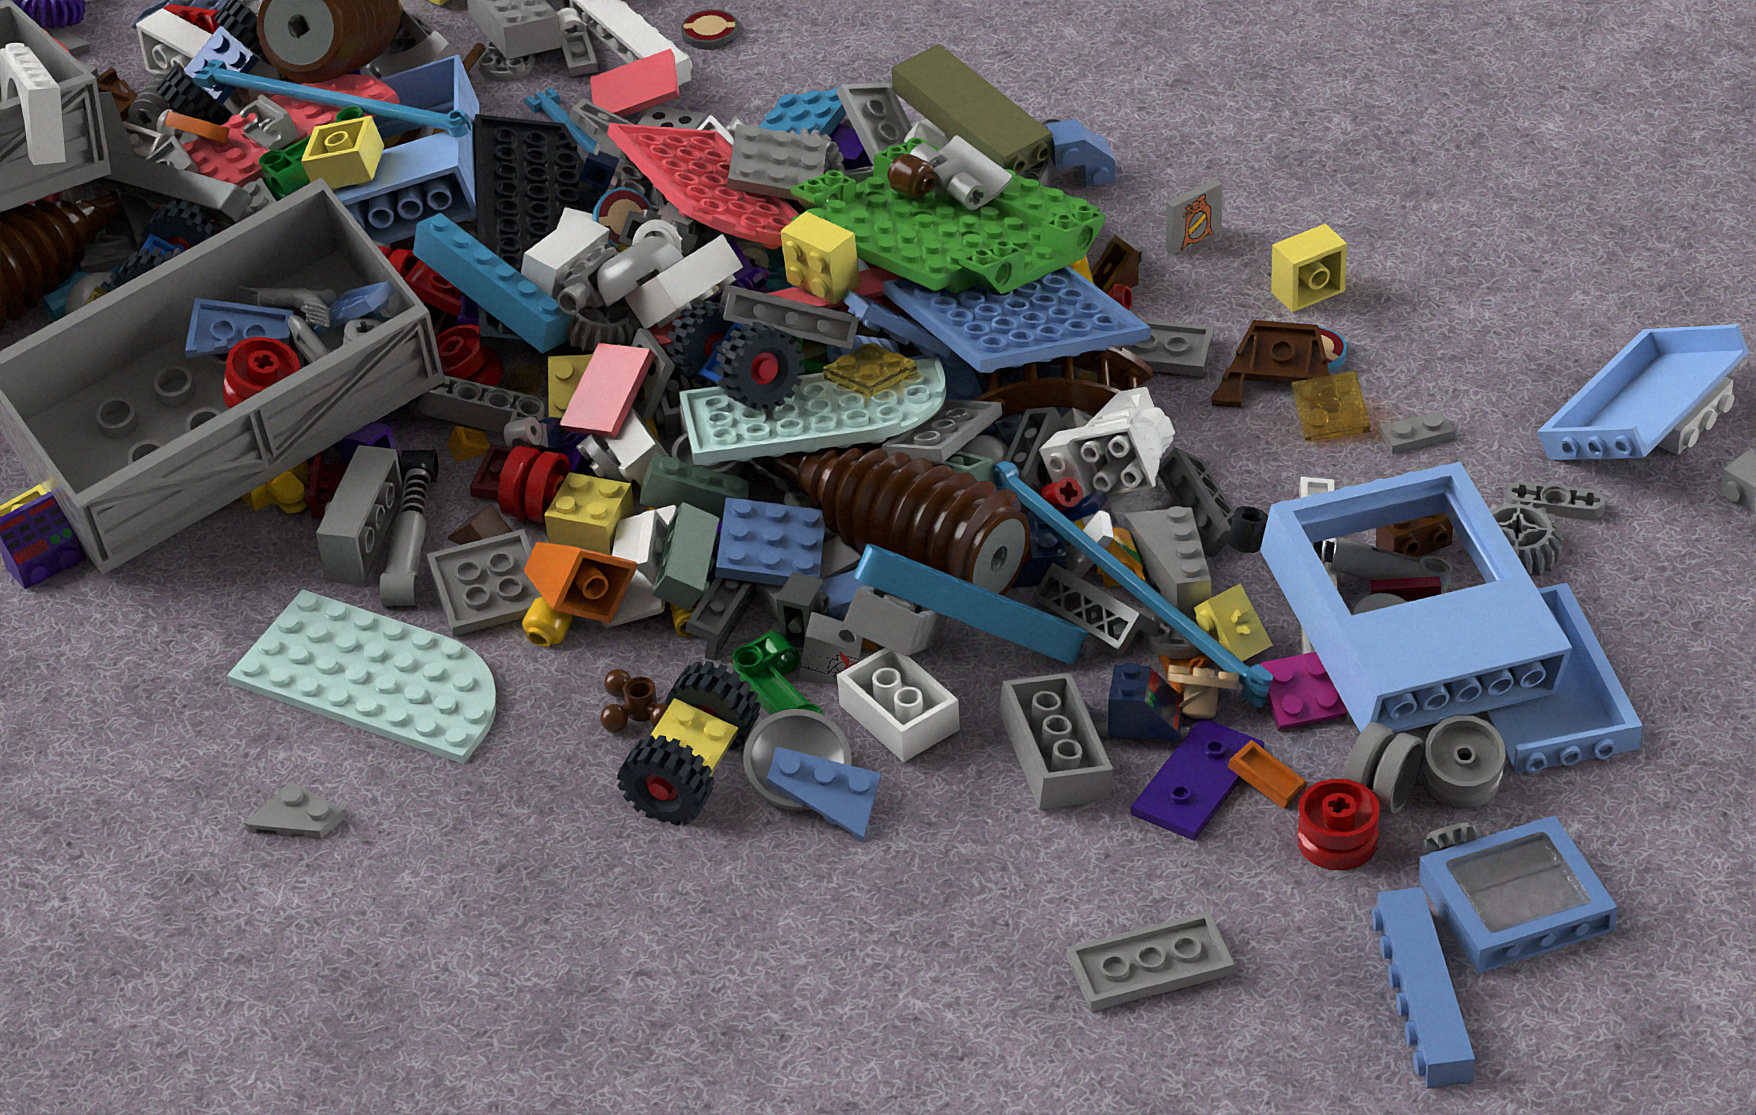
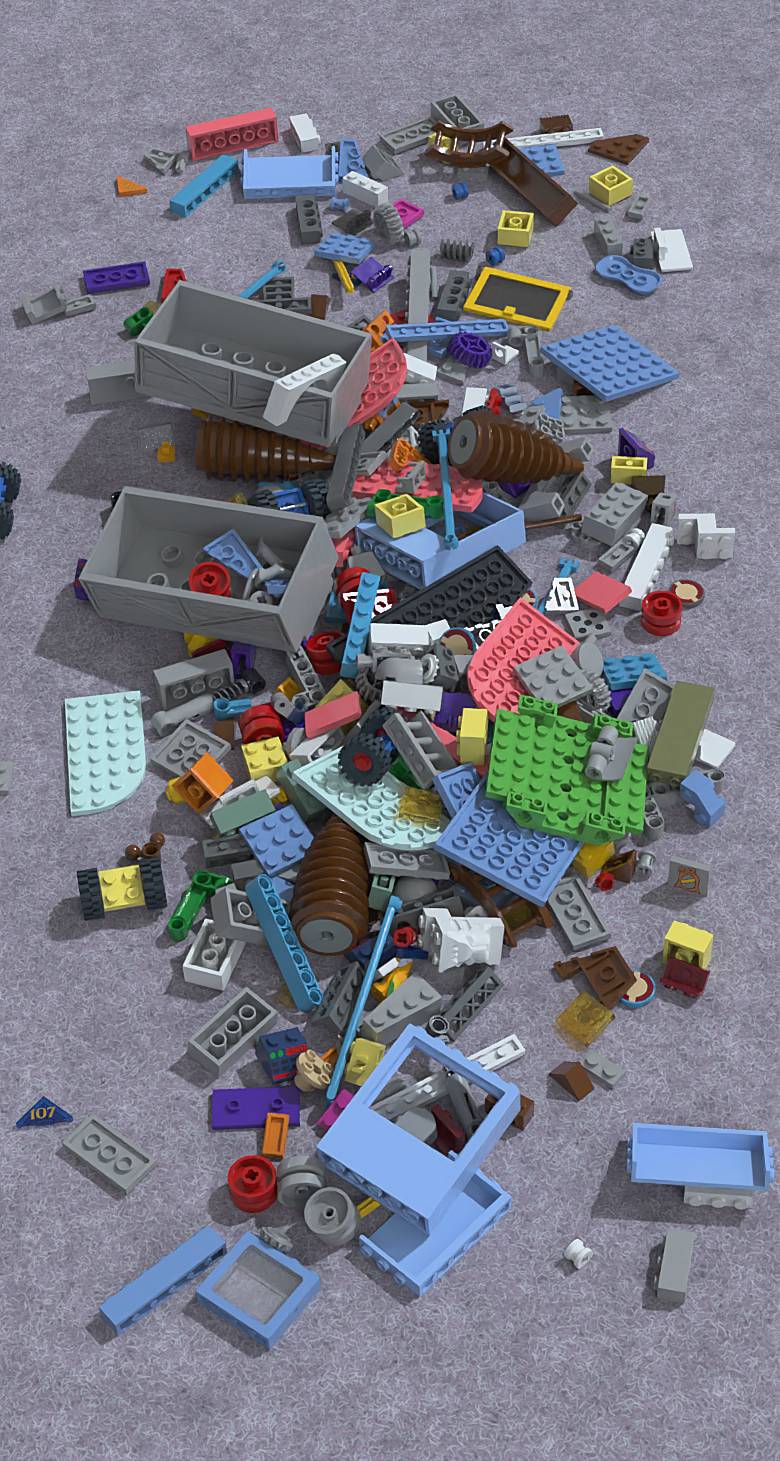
camera: 55 degrees right, 5 degrees up
(446, 510) = (227, 709): none -> dark azure piece
(728, 56) = (661, 613): none -> red wheel
(796, 731) = (137, 929): light grey dish -> none
(831, 788) = (135, 960): medium blue wing -> none
(911, 176) = (582, 737): reddish brown head -> none
(1012, 1008) = (44, 1114): none -> clear blue tile
(1030, 665) = (284, 997): none -> clear yellow tile
(1284, 637) = (389, 1090): none -> light grey axle
(1342, 294) = (685, 977): none -> dark red bracket
(1407, 455) = (573, 1079): none -> reddish brown slope
(1537, 534) = (536, 1167): light grey gear -> none
(1578, 510) = (593, 1152): light grey beam -> none
(1692, 570) = (578, 1253): none -> white wheel

